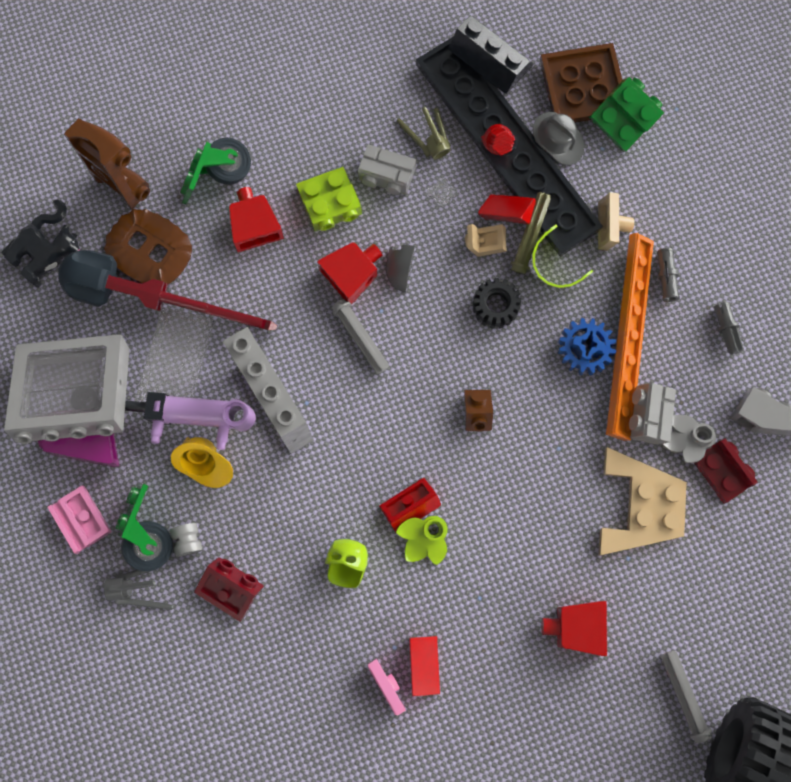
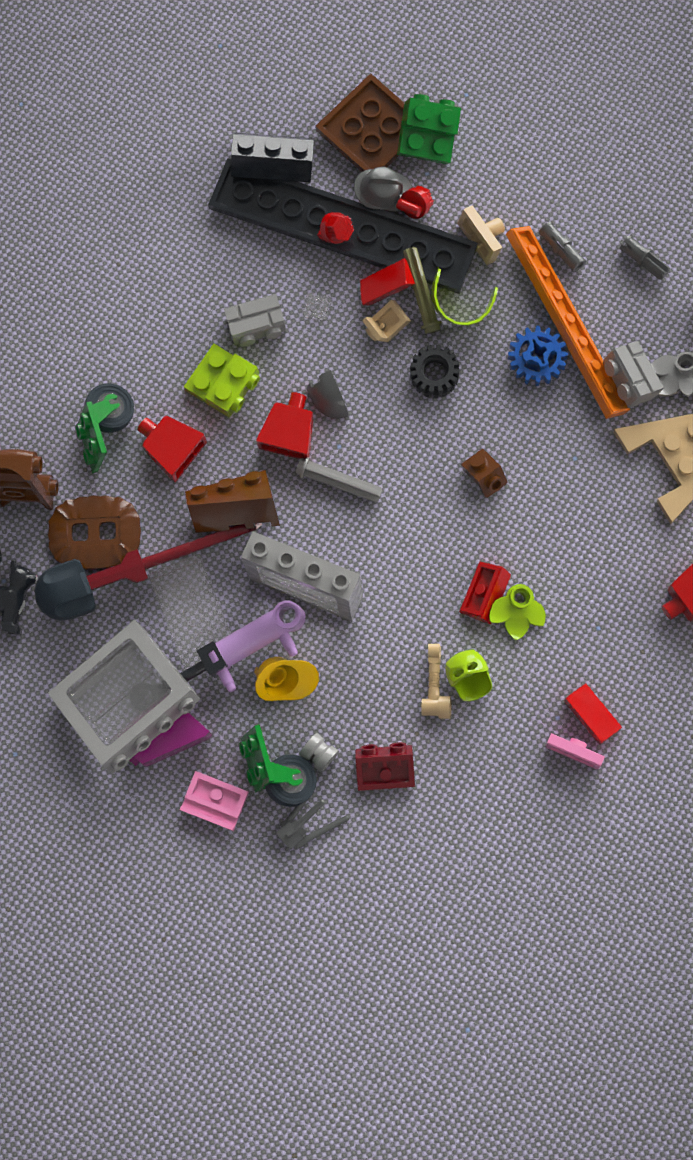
camera: 25 degrees left, 0 degrees up
(265, 297) = (232, 502): none -> reddish brown wedge
(304, 566) = (435, 704): none -> tan brick
(437, 143) = (282, 266): olive plant -> none
(576, 162) = (415, 202): none -> red piece

